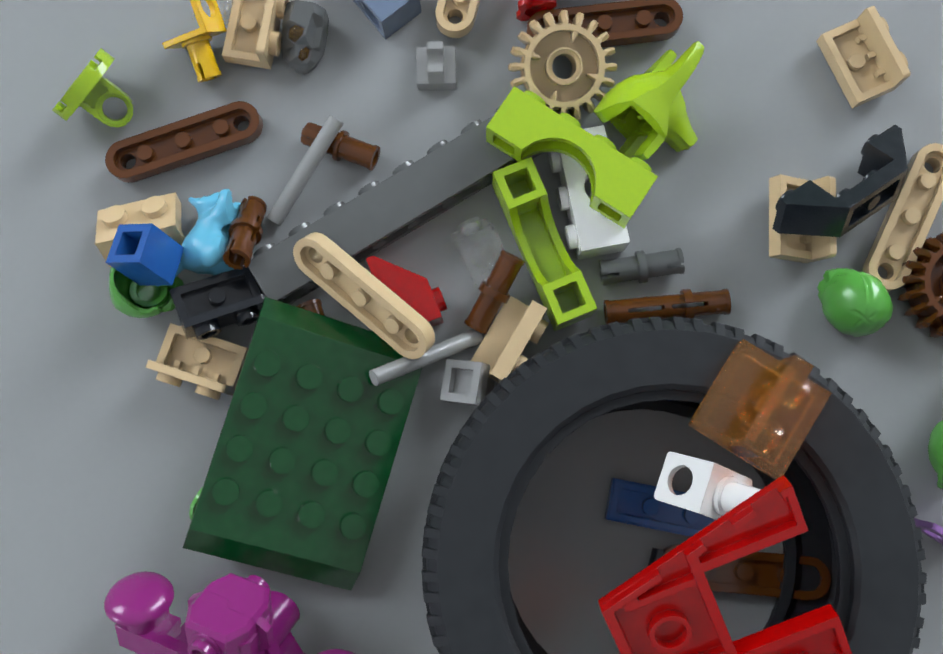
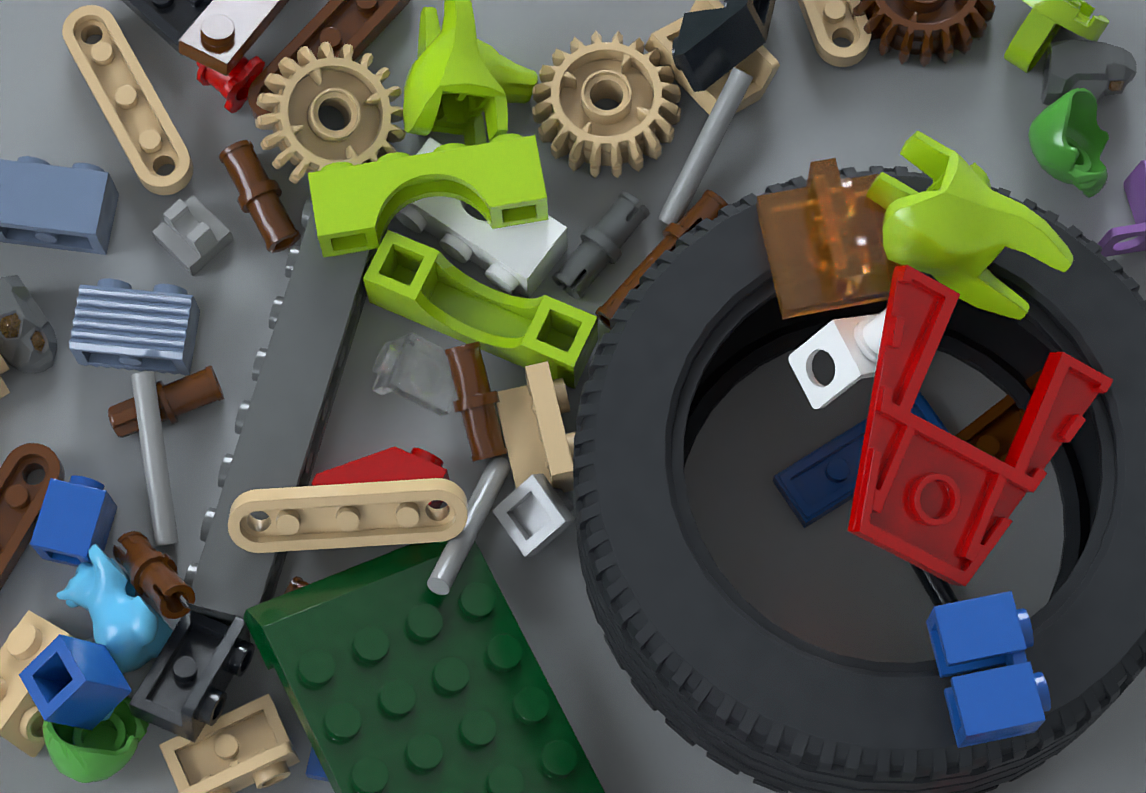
camera: 45 degrees left, 10 degrees down
(236, 166) = (73, 520): none -> blue brick
(359, 91) = (135, 327): none -> sand blue brick
(488, 77) = (259, 196): none -> reddish brown pin
(732, 171) = (606, 72): none -> tan gear
(750, 264) = (705, 146): none -> light grey bar
(852, 479) = (961, 227): none -> lime piece
(854, 301) = (841, 93): bright green hair -> none

